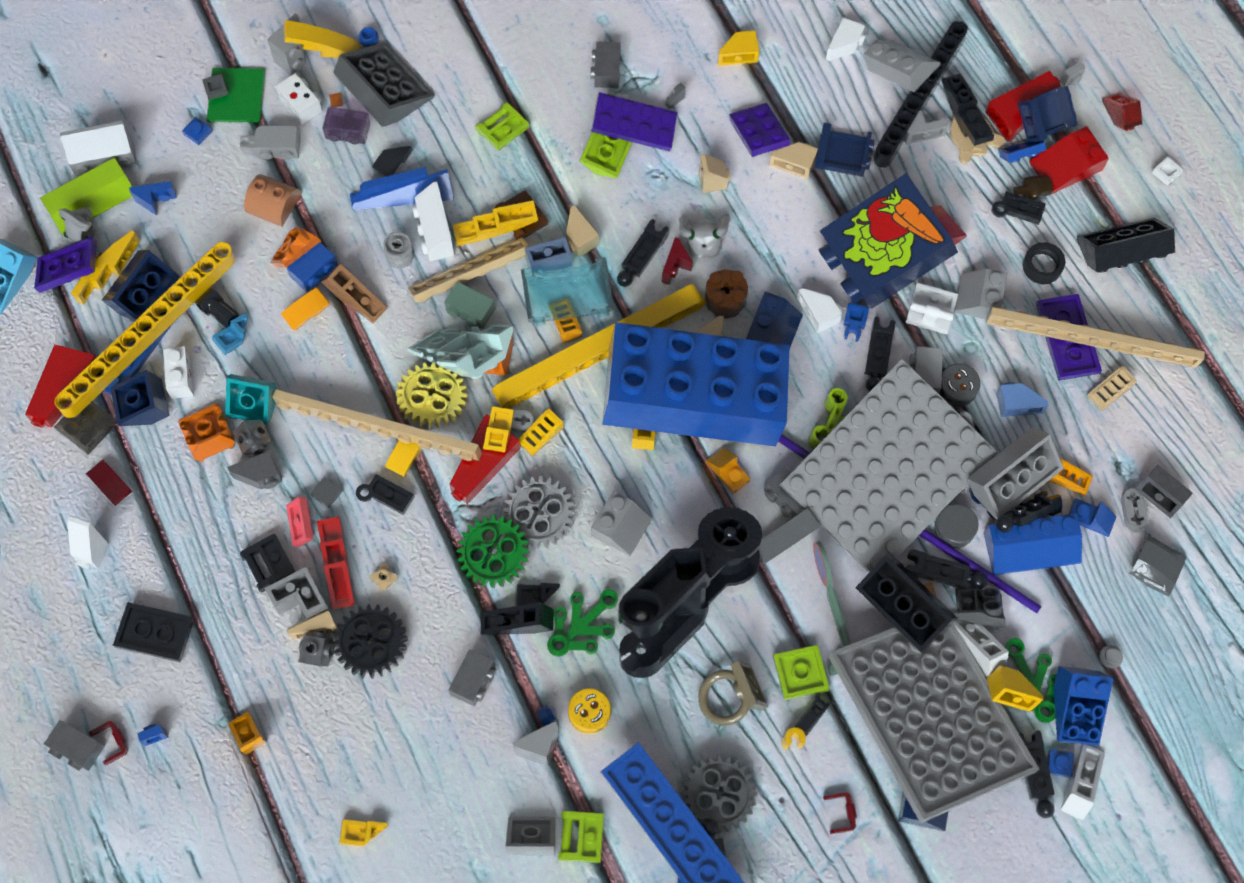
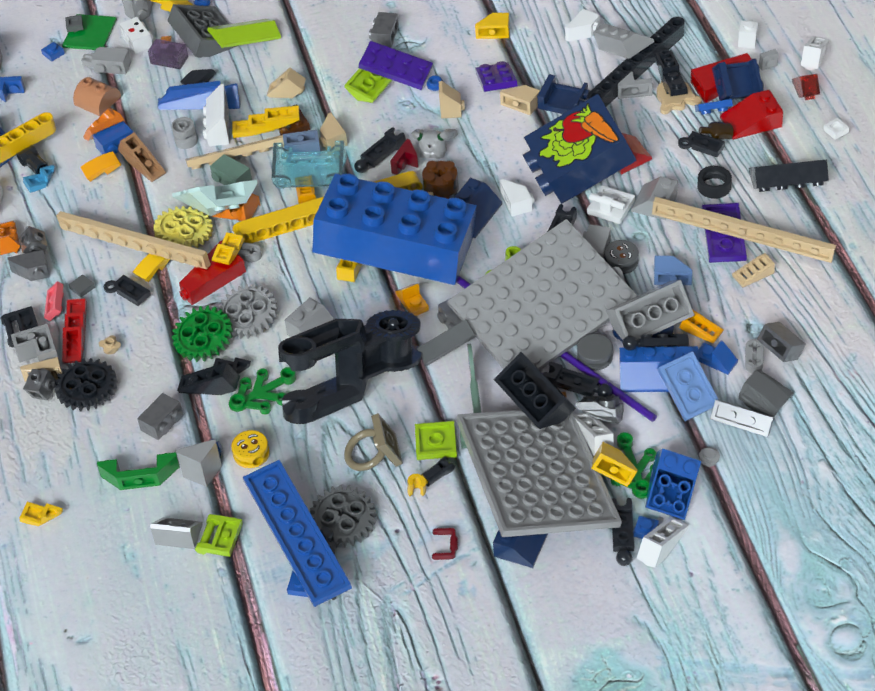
camera: 15 degrees right, 20 degrees down
(249, 398) = (39, 214): teal brick -> none
(432, 762) = (140, 478): none -> green slope
(436, 85) = (245, 32): none -> lime slope
(505, 130) = (296, 60): lime plate -> none
(506, 163) = (287, 85): none -> tan slope
(546, 437) = (275, 257): yellow slope -> none
(677, 97) = (436, 53): dark grey tile -> none
(685, 142) = (433, 83): none -> blue plate
(856, 319) = (544, 206): blue plate -> none
(1041, 35) = (748, 34): none -> white slope
(1075, 568) = (688, 386): none -> medium blue plate
(1123, 59) = (814, 52): none -> white slope
(1138, 601) = (742, 418): none -> plate

